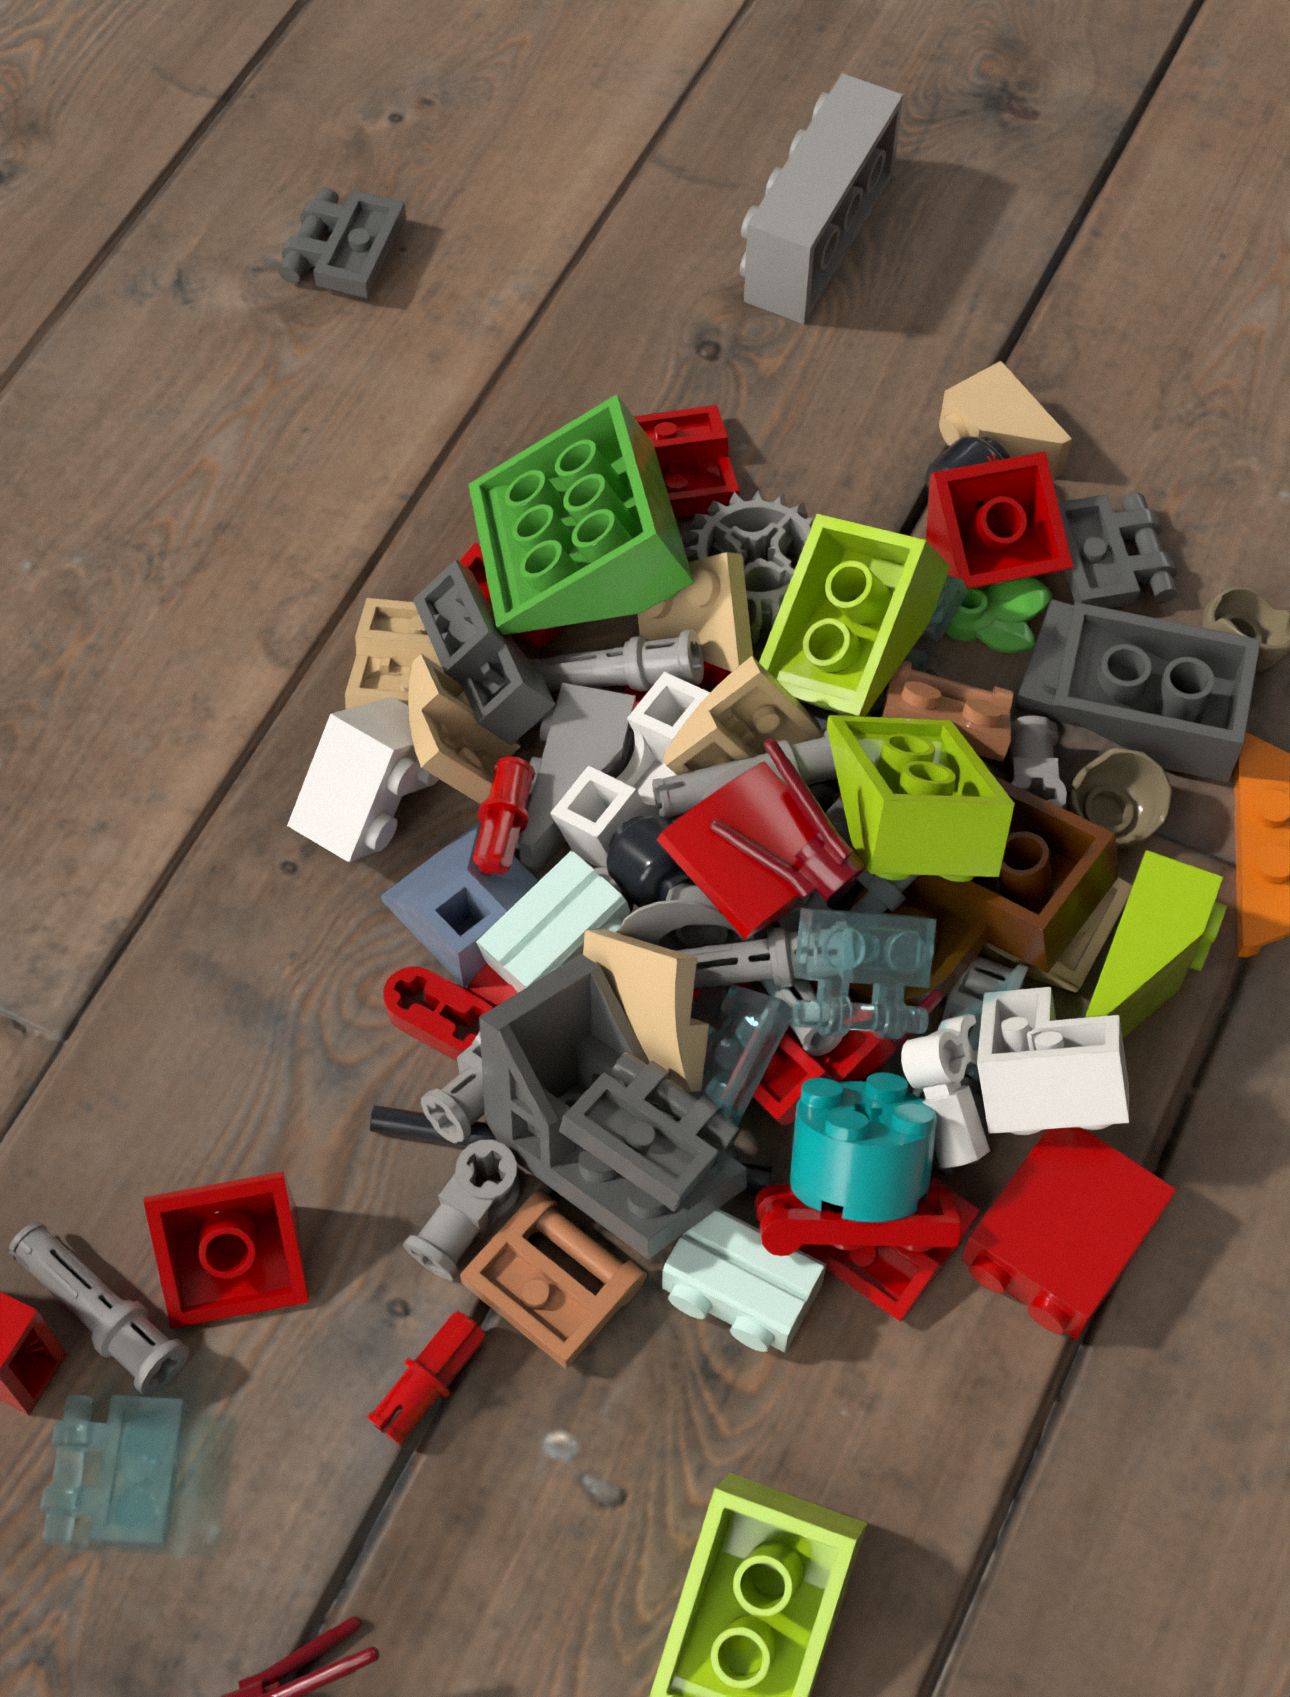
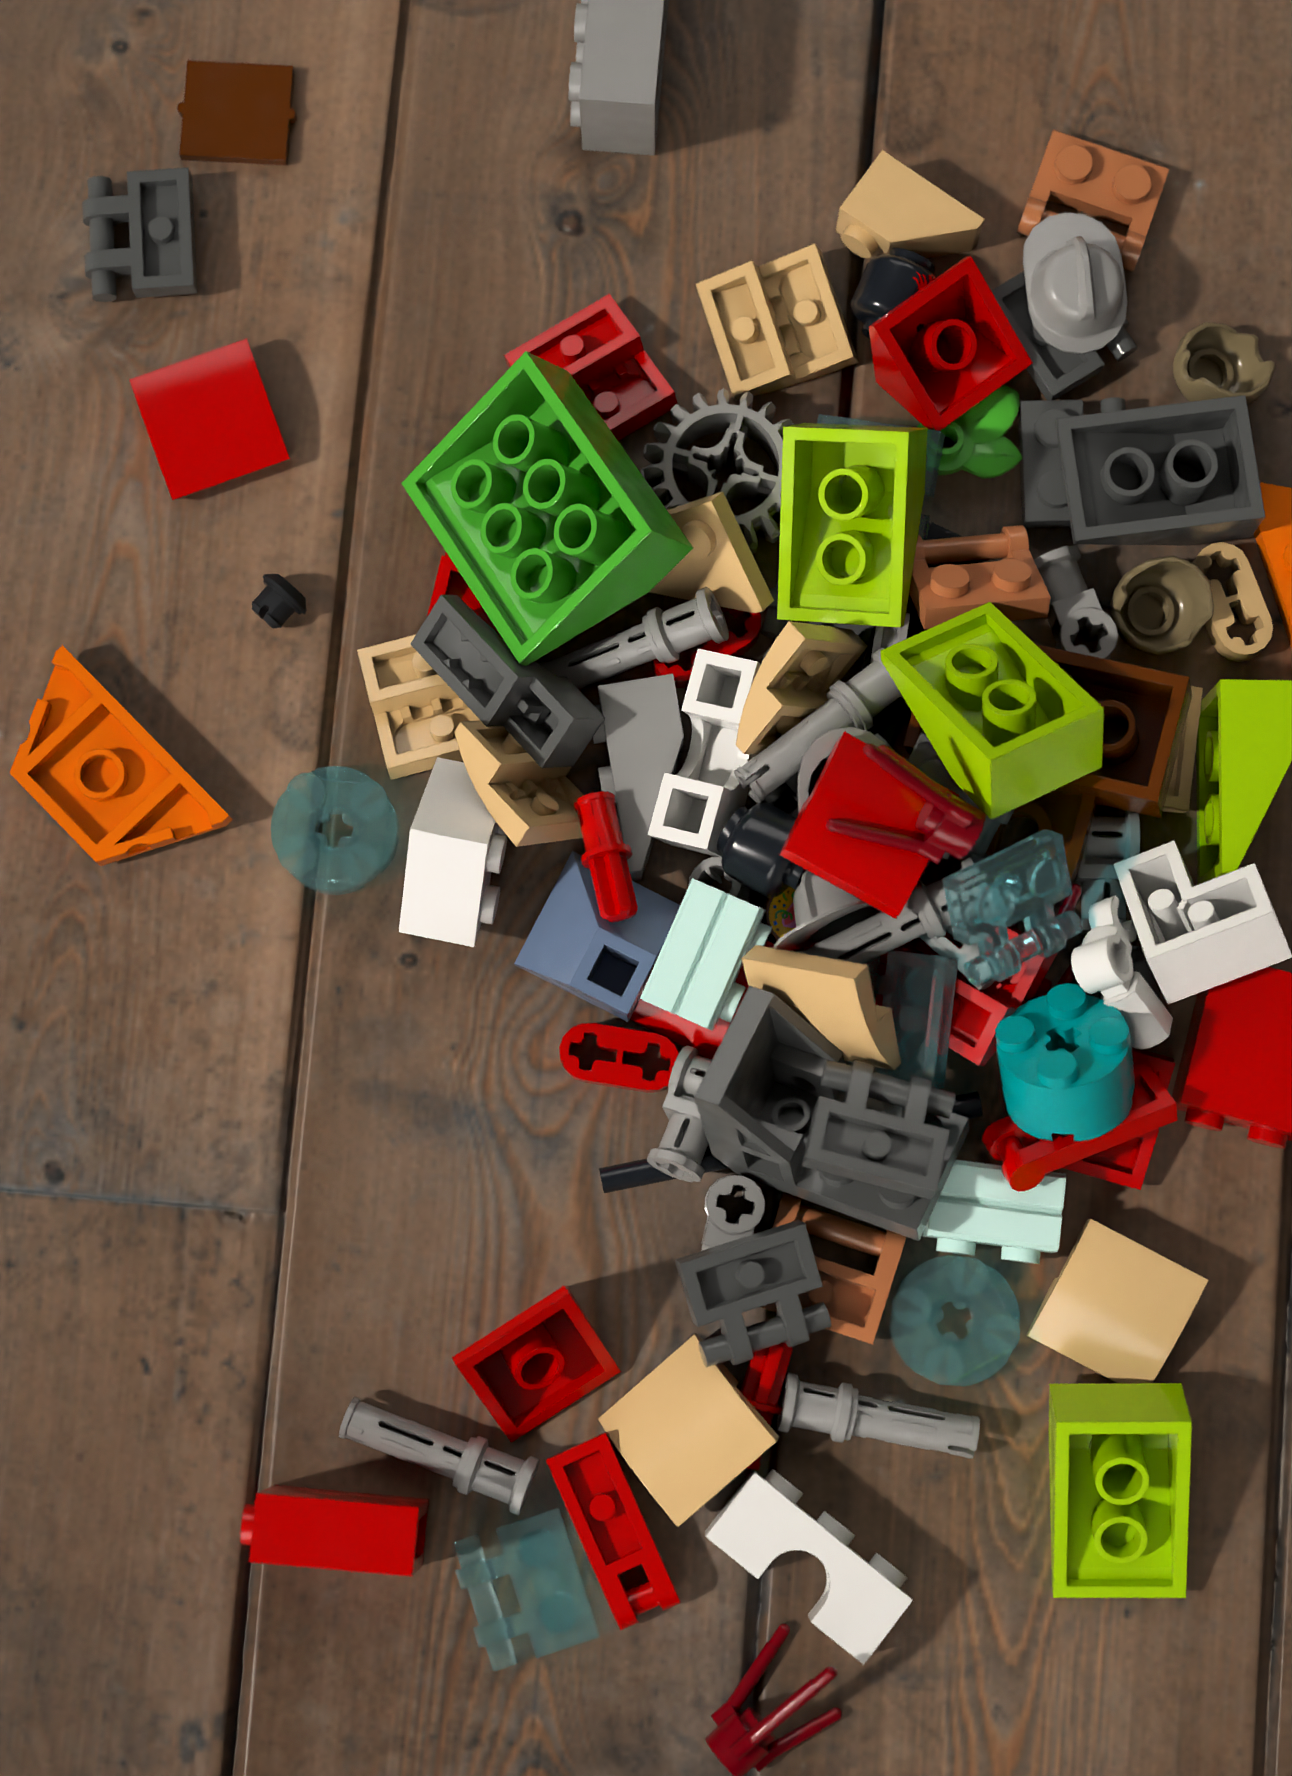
camera: 20 degrees left, 20 degrees up
(100, 619) = (106, 773): none -> orange wing
(226, 1446) = (612, 1528): none -> red plate
(258, 706) = (313, 800): none -> clear light blue plate
(317, 538) = (278, 601): none -> black piece
(329, 388) = (209, 419): none -> red slope
(345, 1375) = (687, 1431): none -> tan slope
(380, 1498) = (859, 1596): none -> white arch
(466, 188) = (237, 112): none -> reddish brown piece
(471, 1233) = (748, 1275): none -> dark grey plate
(512, 1424) = (848, 1414): none -> light grey pin
(632, 1408) = (991, 1330): none -> clear light blue plate
(830, 1422) = (1116, 1306): none -> tan slope
(857, 471) = (776, 322): none -> tan slope
(1136, 520) = (1074, 282): none -> light grey piece
(1187, 460) = (1098, 184): none -> nougat plate
(1202, 827) = (1244, 596): none -> tan beam

